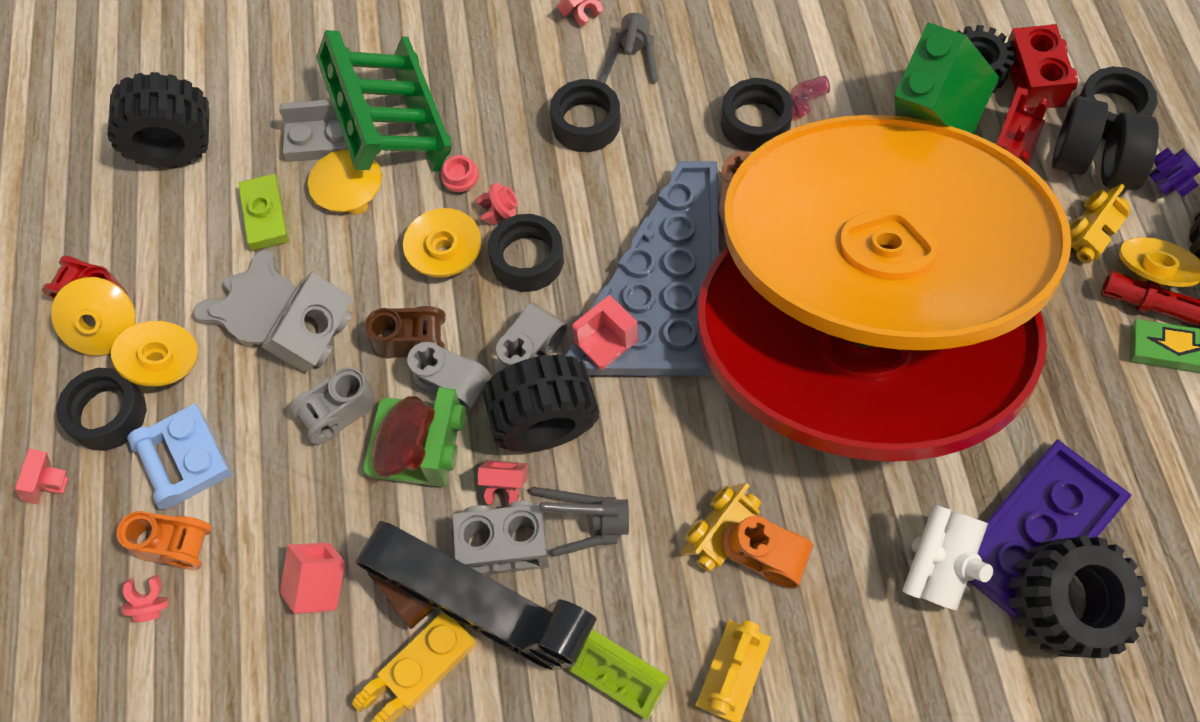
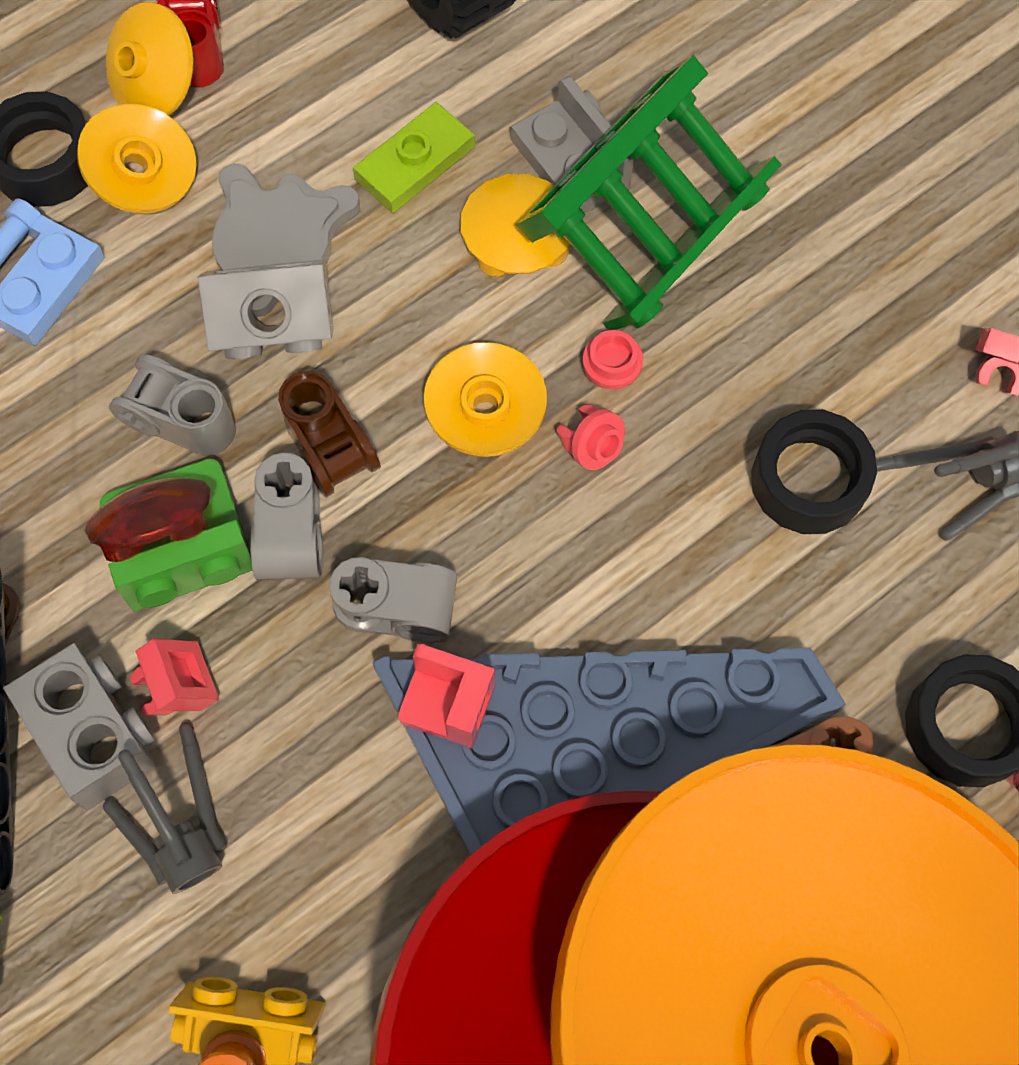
camera: 55 degrees right, 5 degrees up
(520, 227) = (542, 472): black tyre -> none
(540, 403) = (284, 667): black tyre -> none

